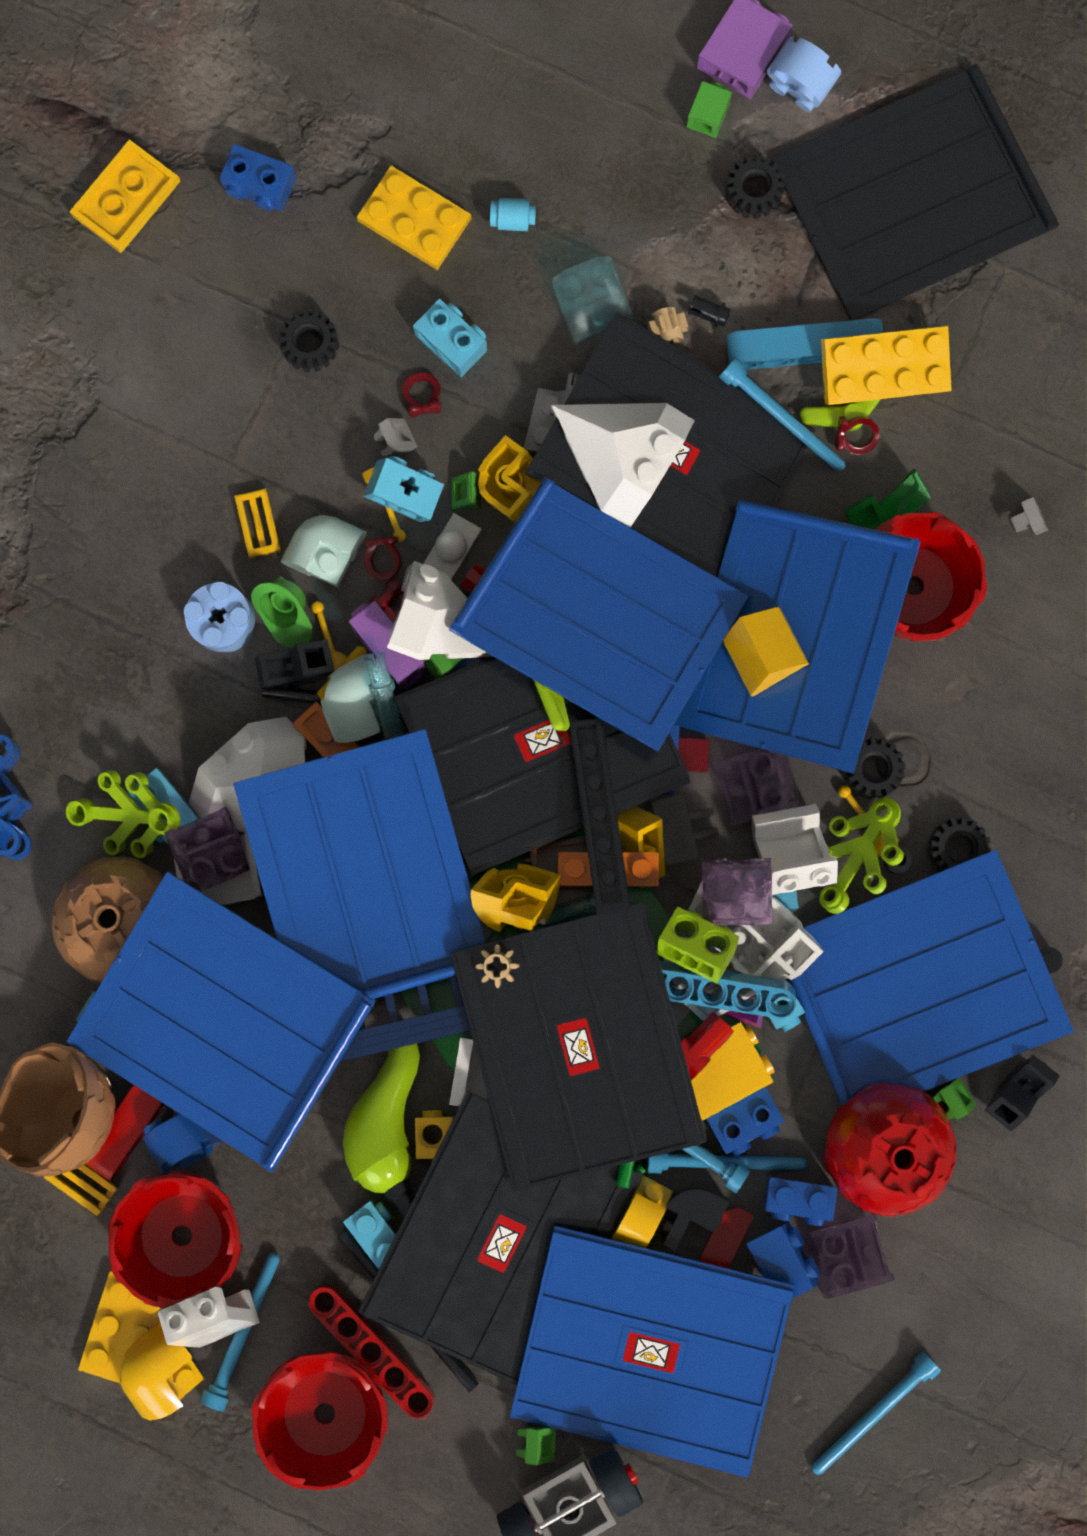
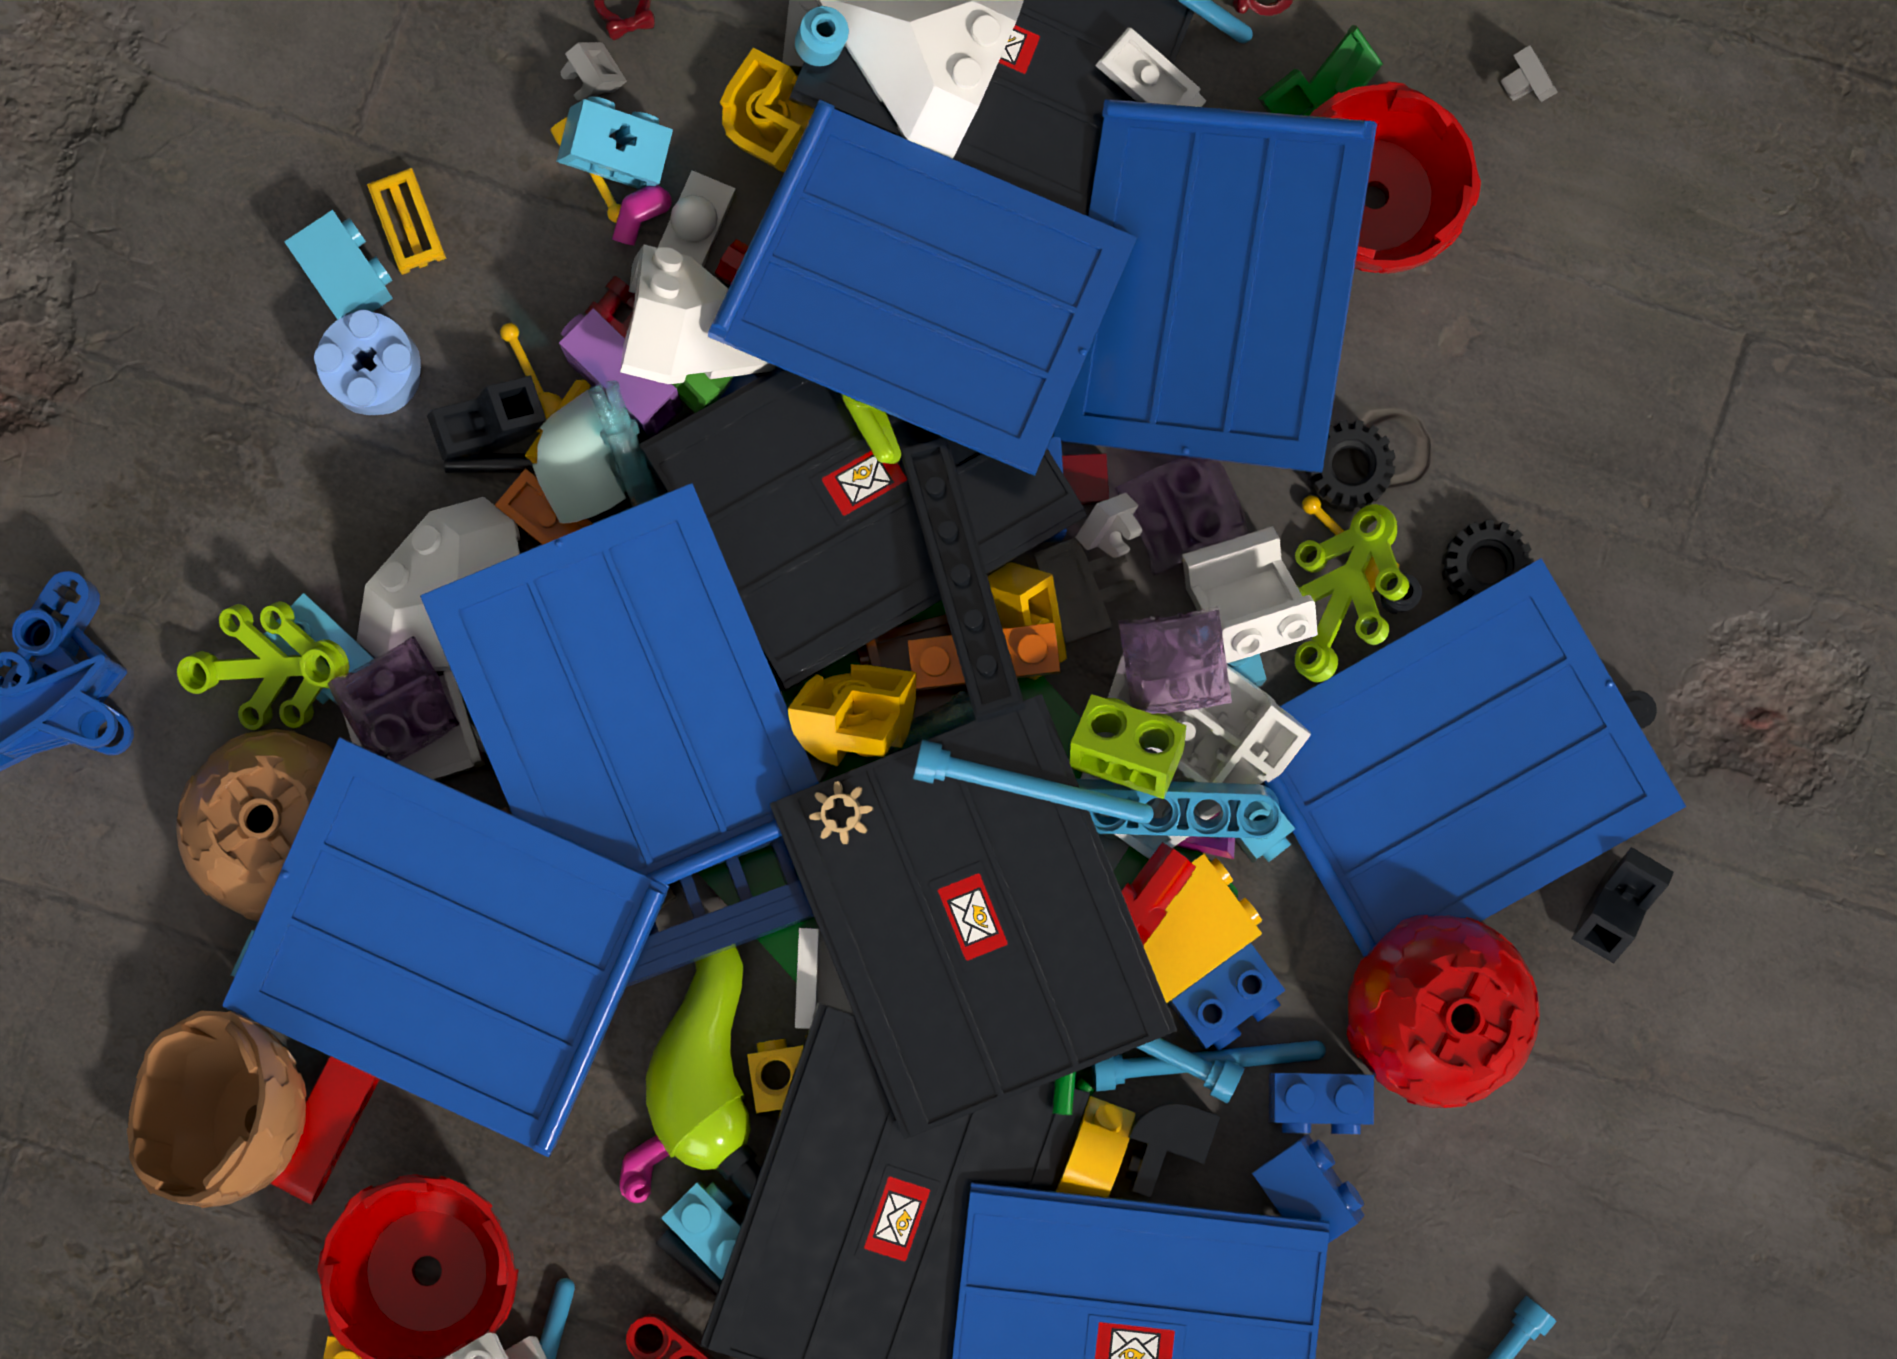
camera: 15 degrees left, 0 degrees up
(77, 1196) = (306, 1232): yellow tile -> none
(178, 1142) = (405, 1133): blue brick -> none
(208, 551) = (337, 266): none -> medium azure brick
(283, 612) = (460, 343): bright green piece -> none
(324, 548) = (508, 244): light aqua brick -> none
(331, 1186) = (638, 1168): none -> dark pink arm
(372, 545) = (579, 232): dark red piece -> none
(414, 534) = (638, 208): none -> dark pink arm
(465, 492) = (705, 138): bright green slope -> none
(544, 441) = (818, 49): none -> medium azure brick
(566, 941) = (937, 763): none -> dark azure piece
(704, 788) = (1107, 523): none -> light grey tile
(727, 1238) = (1224, 1169): red piece -> none
(764, 649) = (1169, 311): yellow slope -> none
(770, 485) = (1147, 73): none -> white hinge
(855, 1260) = (1411, 1168): clear purple slope -> none
(957, 1098) = (1529, 925): bright green tile -> none

